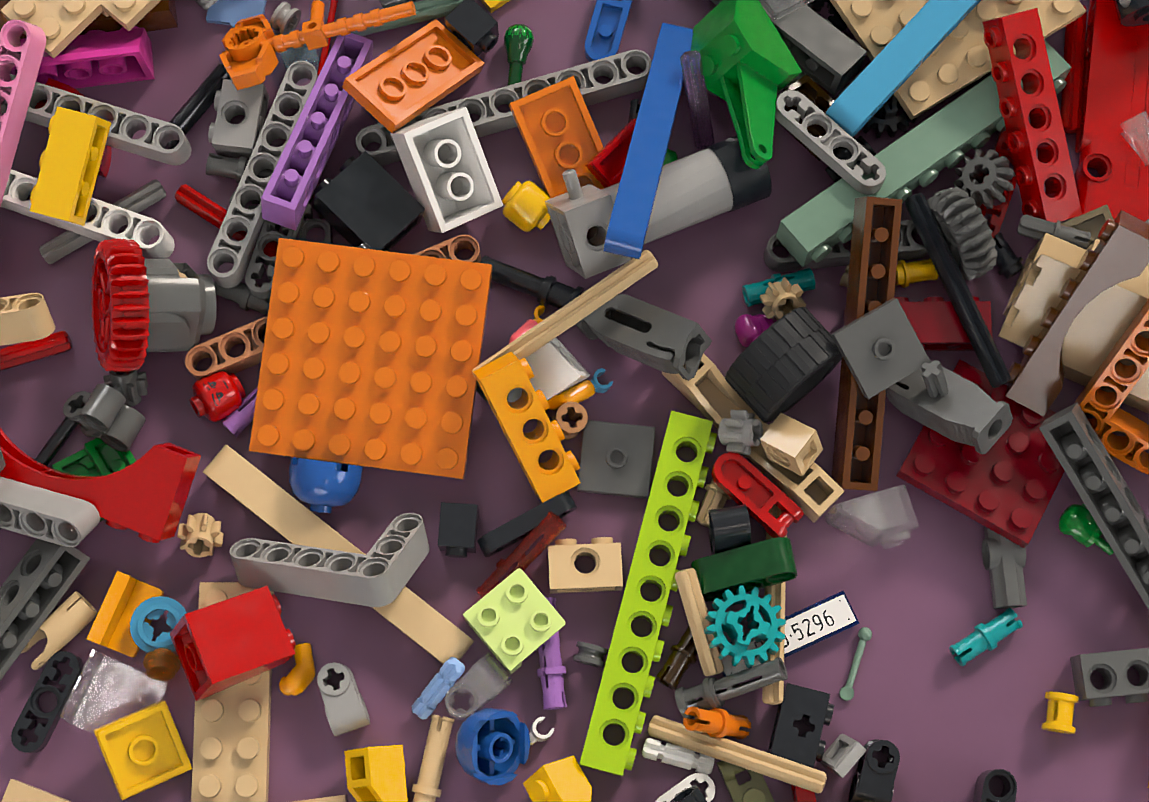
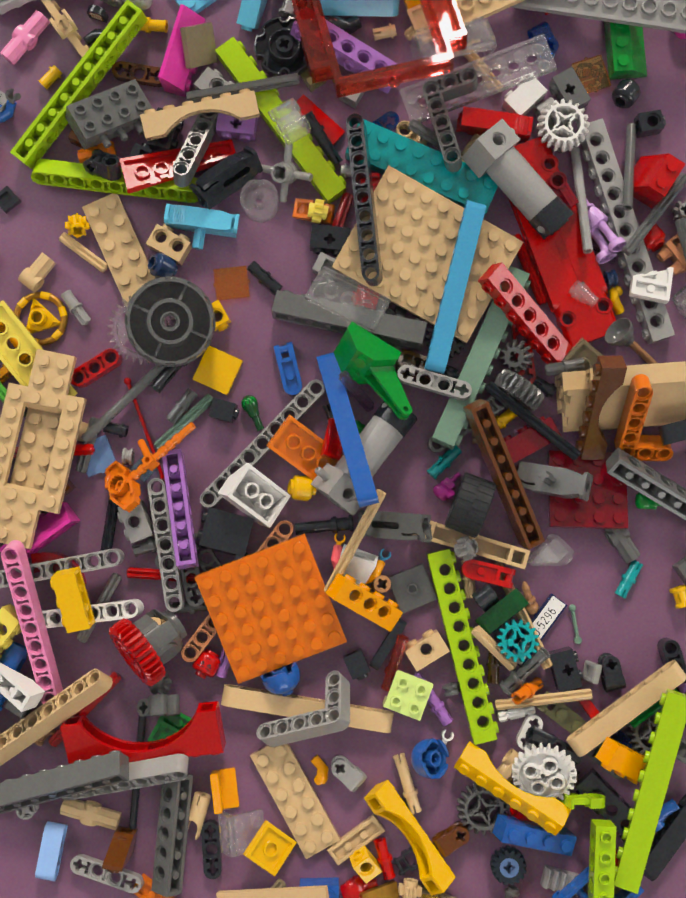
camera: 25 degrees left, 10 degrees up
(152, 609) = (250, 791): dark azure gear -> none
(161, 664) = (255, 804): clear orange plate -> none
(200, 535) = (237, 734): tan gear -> none
(232, 641) = (284, 779): red slope -> none
(413, 75) = (210, 455): orange plate -> none
(438, 687) = (389, 745): light blue axle -> none
(482, 683) = (408, 730): clear piece -> none
(781, 299) = (451, 470): tan gear -> none
(791, 444) = (493, 542): tan brick -> none
(797, 592) = (533, 607): none -> medium nougat bar
(880, 348) = (514, 477): dark grey plate -> none

